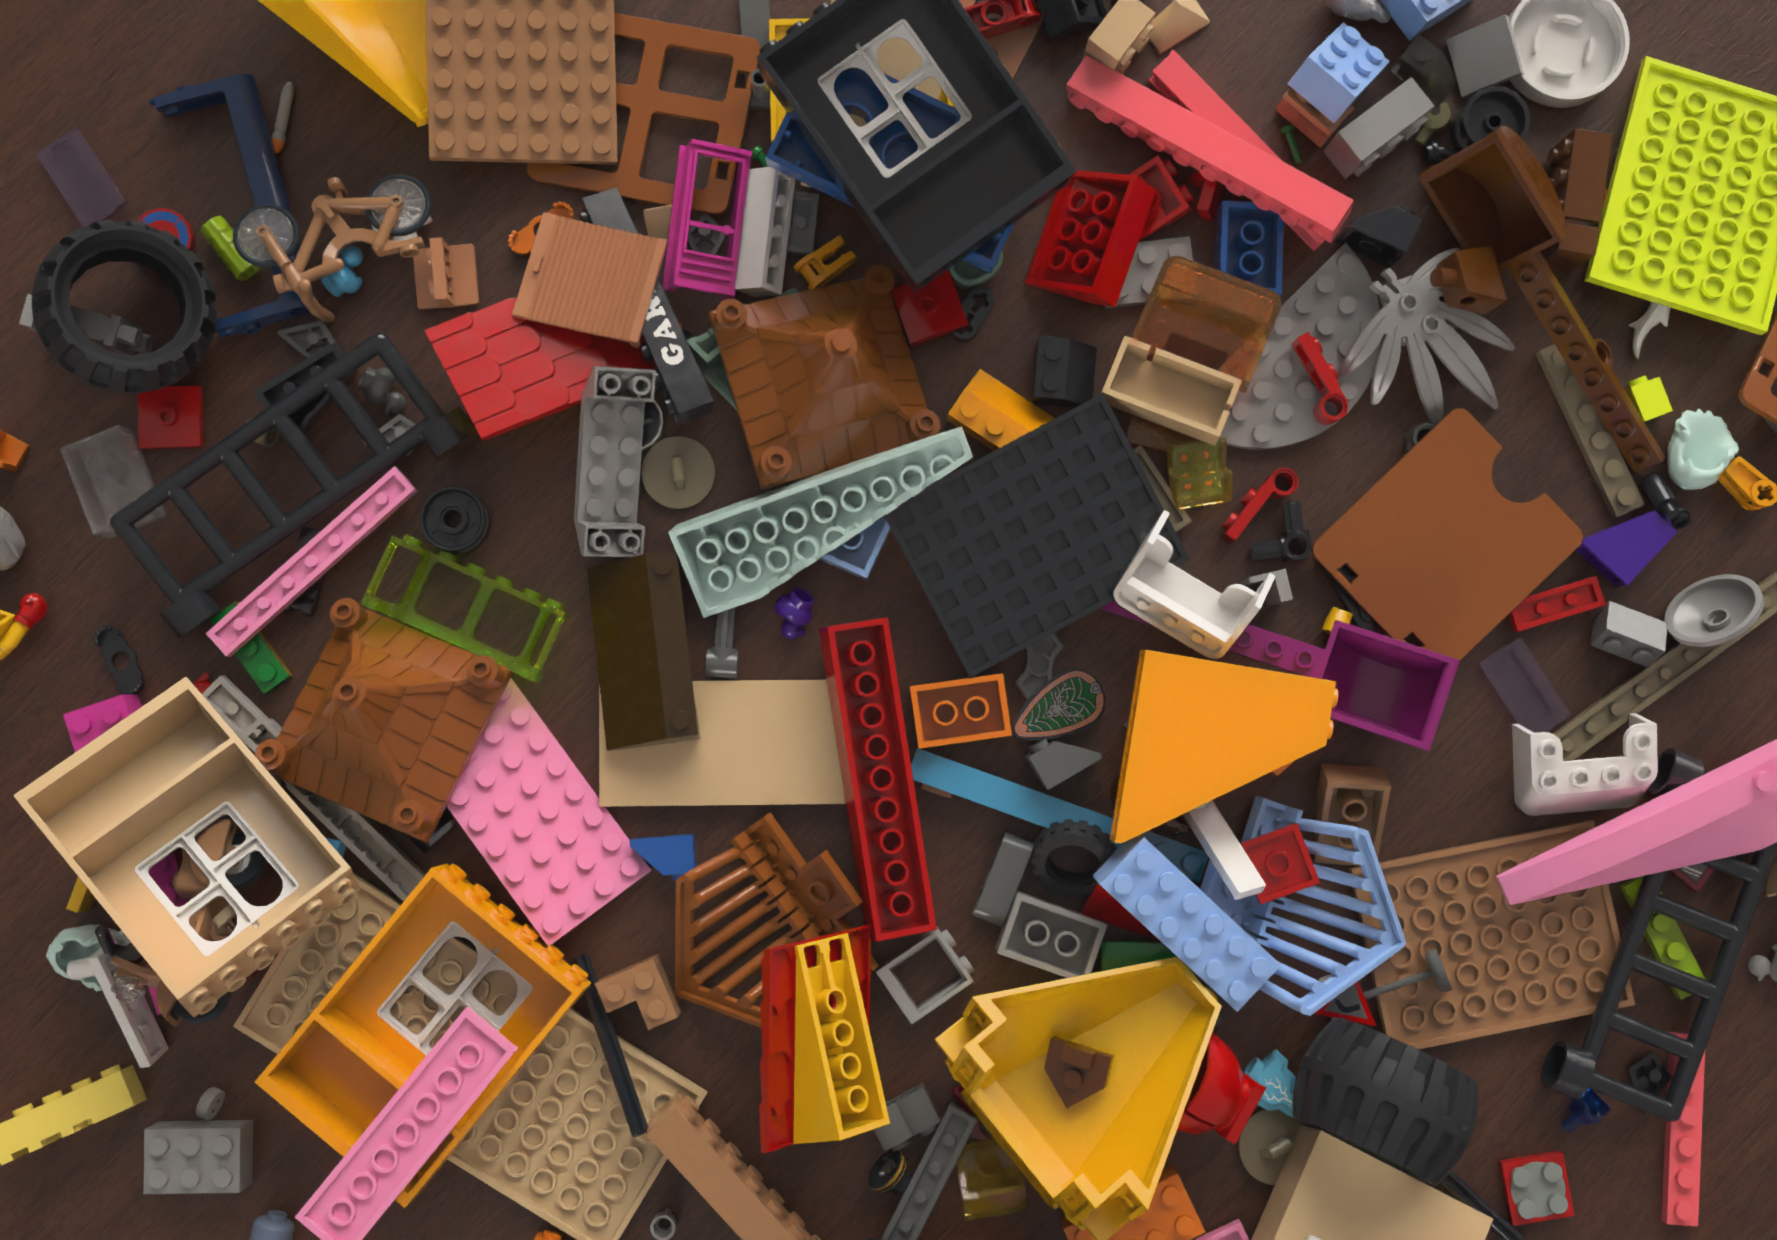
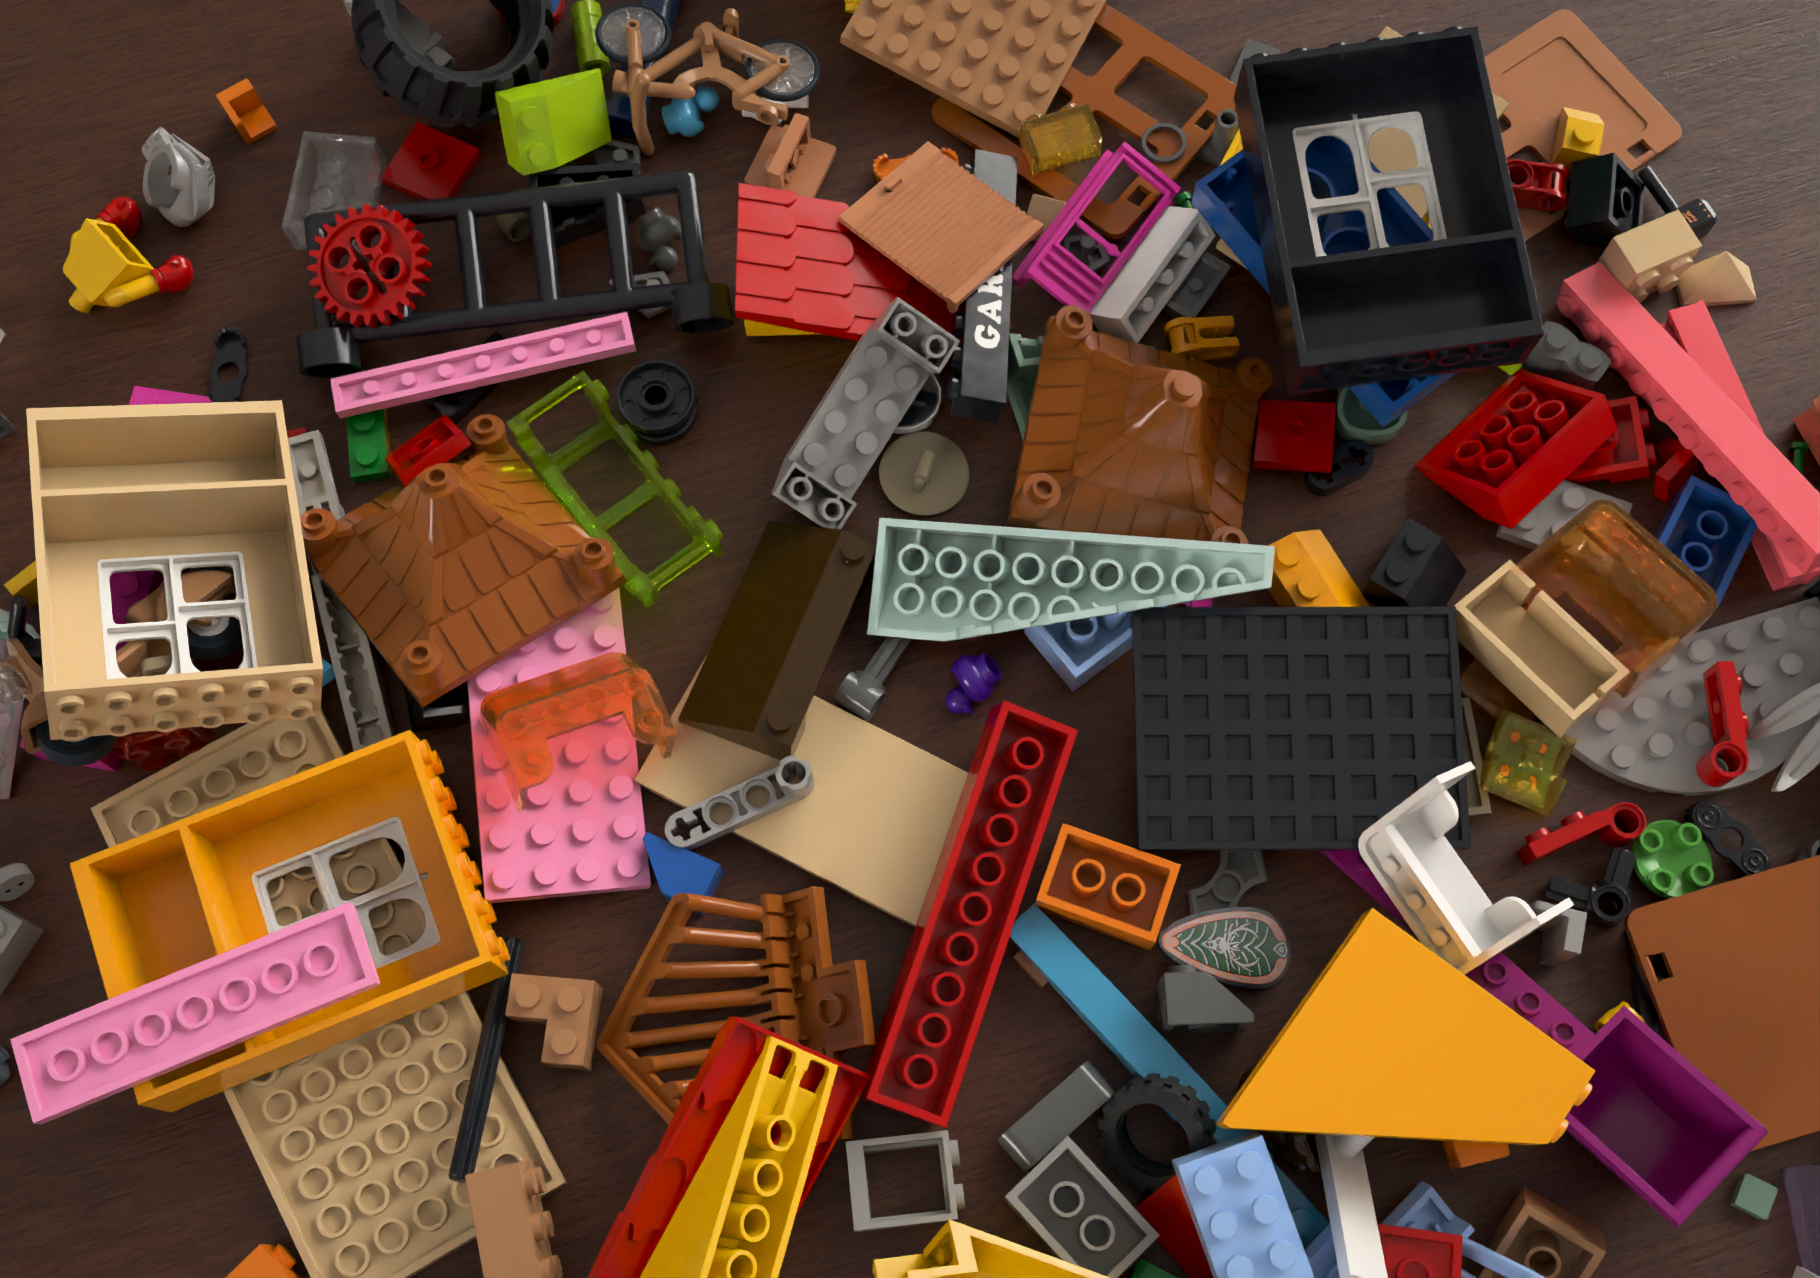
camera: 35 degrees right, 15 degrees down
(194, 512) = (341, 285): none -> red gear
(250, 344) = (553, 121): none -> lime slope
(311, 650) = (429, 447): none -> red plate
(526, 785) = (565, 700): none -> clear orange windscreen
(639, 154) = (1060, 138): none -> clear yellow brick
(679, 784) = (737, 799): none -> light grey beam
(716, 100) = (1164, 160): none -> dark grey piece
(1101, 149) = (1566, 359): none -> dark grey brick
(1325, 489) = (1672, 858): none -> bright green dish
(1339, 446) = (1711, 821): none -> black piece
(1468, 690) = (1754, 1196): none -> sand green piece

